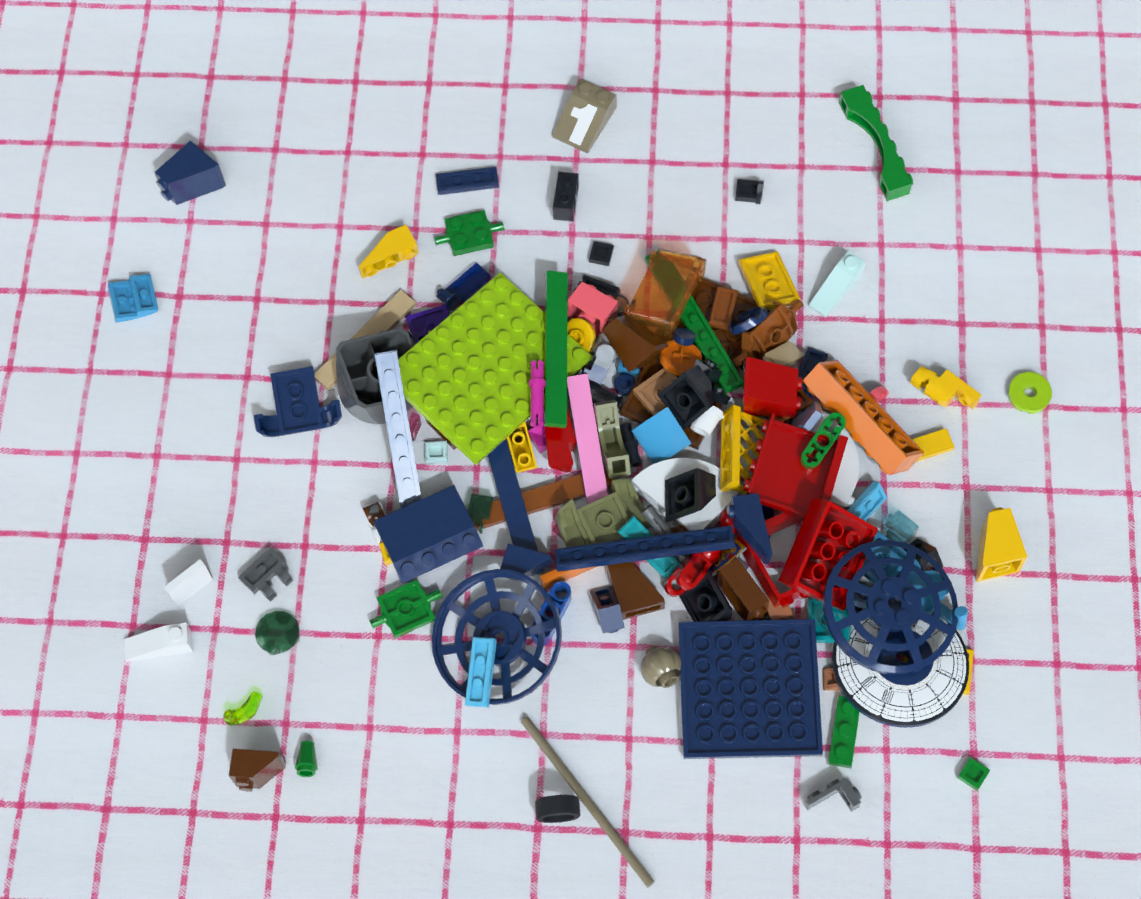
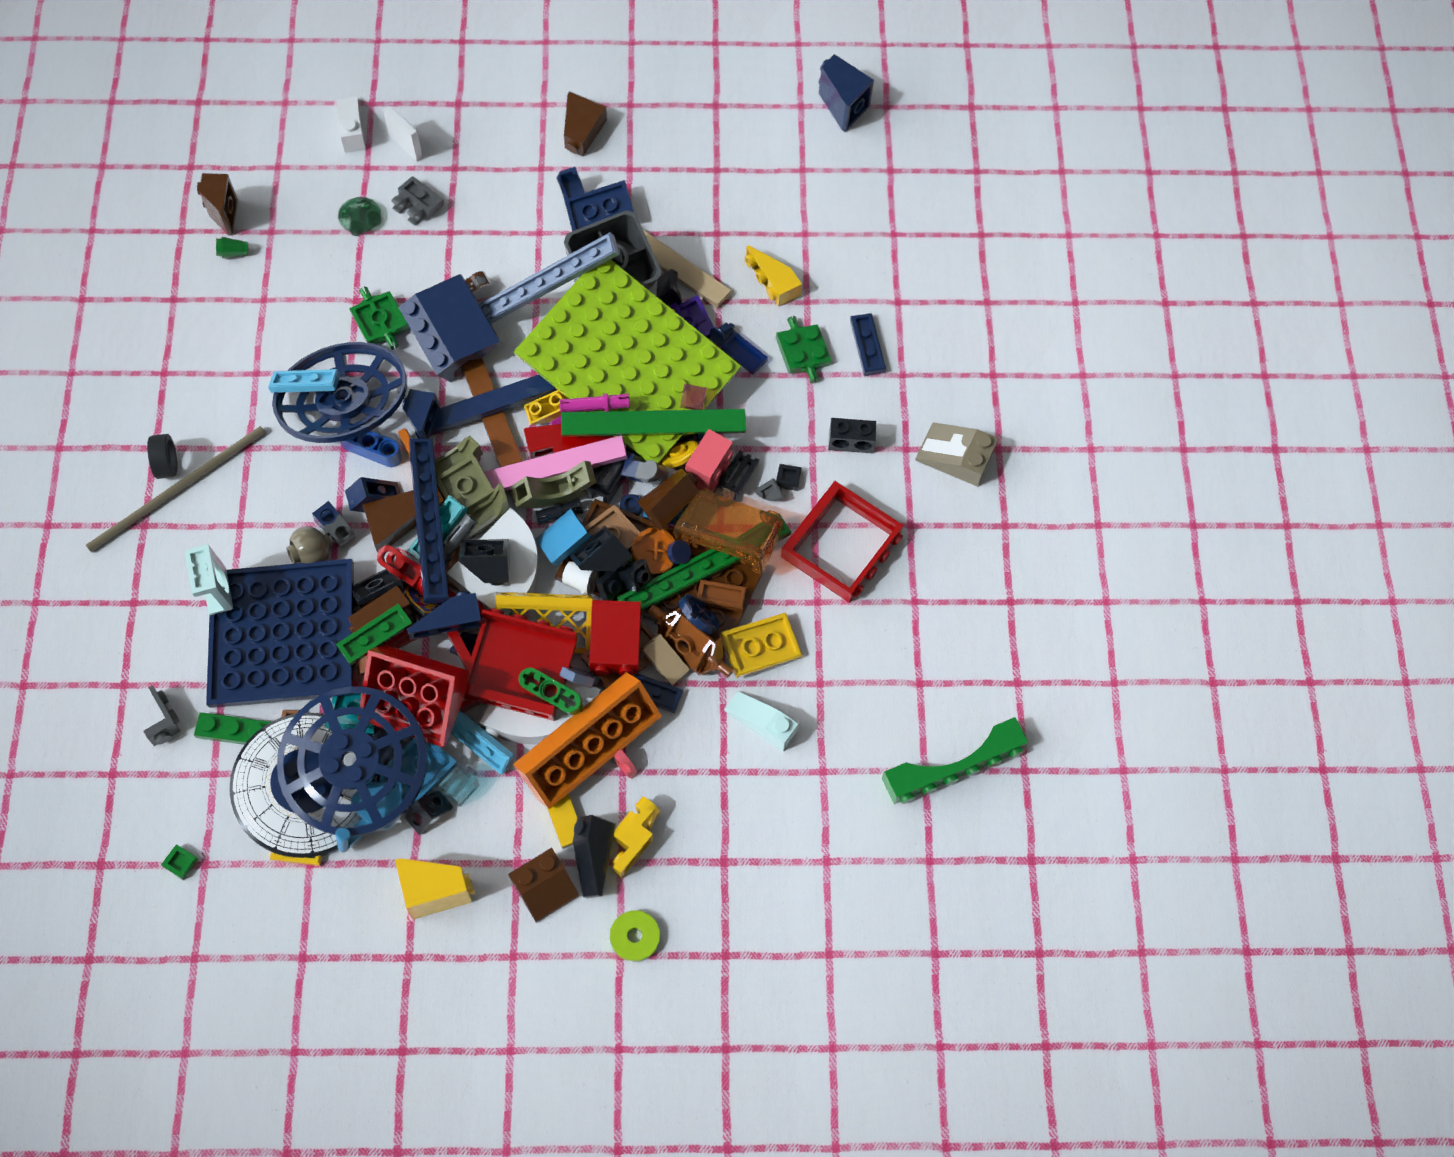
camera: 80 degrees right, 0 degrees up
(132, 298) = (709, 65): dark azure slope -> none
(190, 416) = (582, 123): none -> reddish brown slope
(244, 712) = (281, 196): clear neon green arm -> none
(480, 508) = (482, 374): clear green plate -> none
(532, 312) = (693, 397): none -> tile
(616, 267) = (770, 491): none -> dark grey tile
(636, 645) = (333, 524): none -> leg
(686, 185) = (859, 506): none -> red window
(706, 745) = (209, 578): none -> light aqua panel
(749, 191) = (879, 626): black tile -> none
(771, 586) = (374, 634): none -> green plate
(963, 419) = (592, 851): none -> black slope
(987, 462) = (543, 885): none -> reddish brown slope

